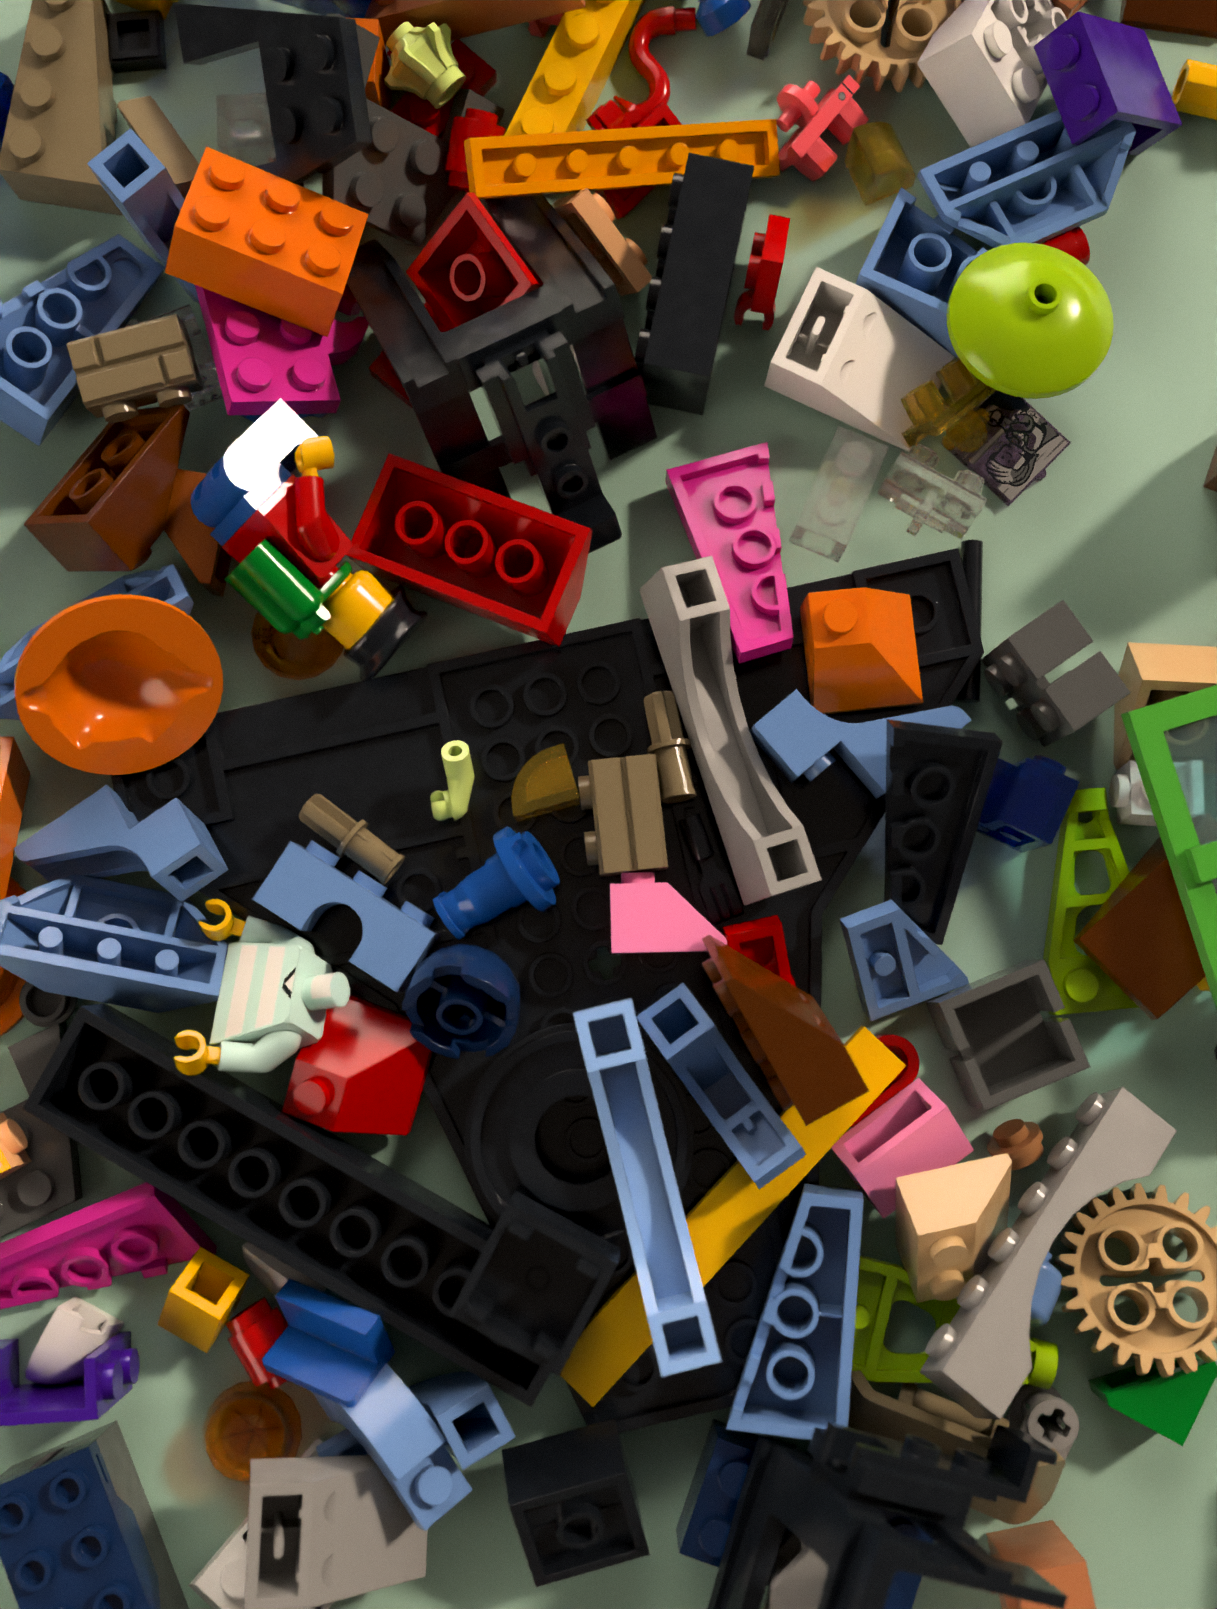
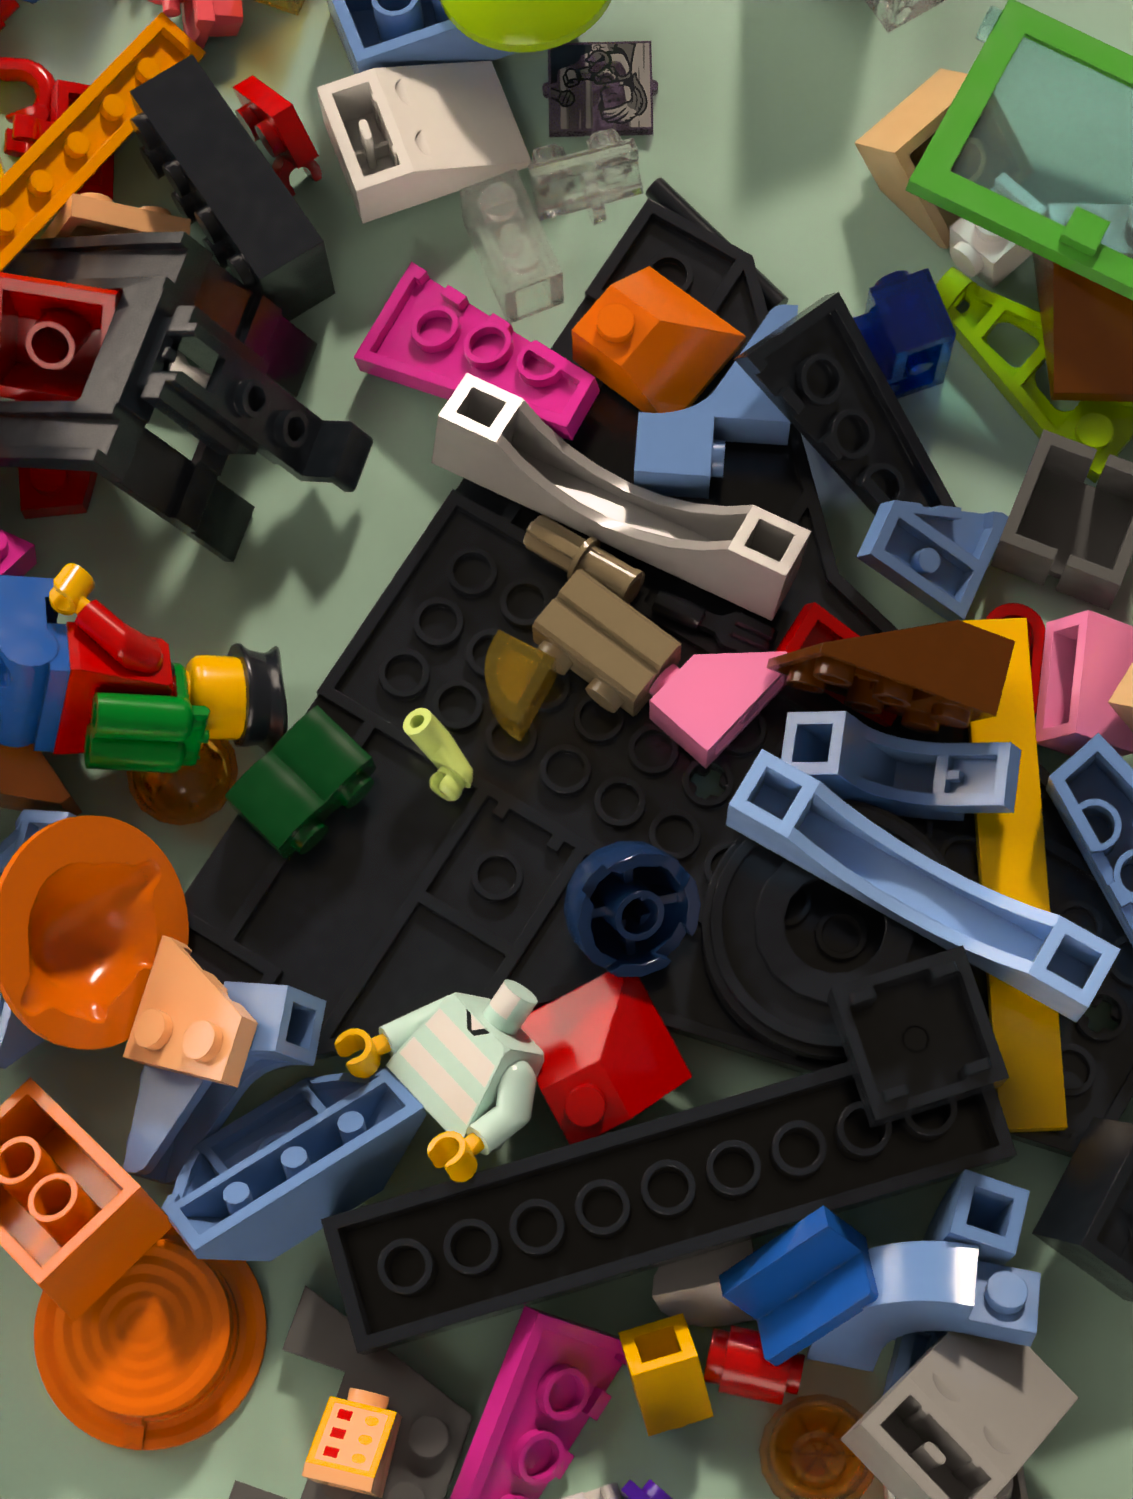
camera: 40 degrees left, 10 degrees down
(44, 1007) = (276, 1283): dark grey plate -> none
(130, 801) = (189, 1021): none -> light nougat wing
(308, 884) = (406, 942): medium blue arch -> none
(351, 838) = (399, 882): dark tan axle -> none
(352, 716) = (302, 783): none -> dark green brick
(473, 549) = (266, 557): red slope -> none
(507, 880) = (563, 783): blue piece -> none
(954, 415) = (538, 99): clear yellow hips -> none
(1070, 701) = (798, 242): dark grey piece -> none

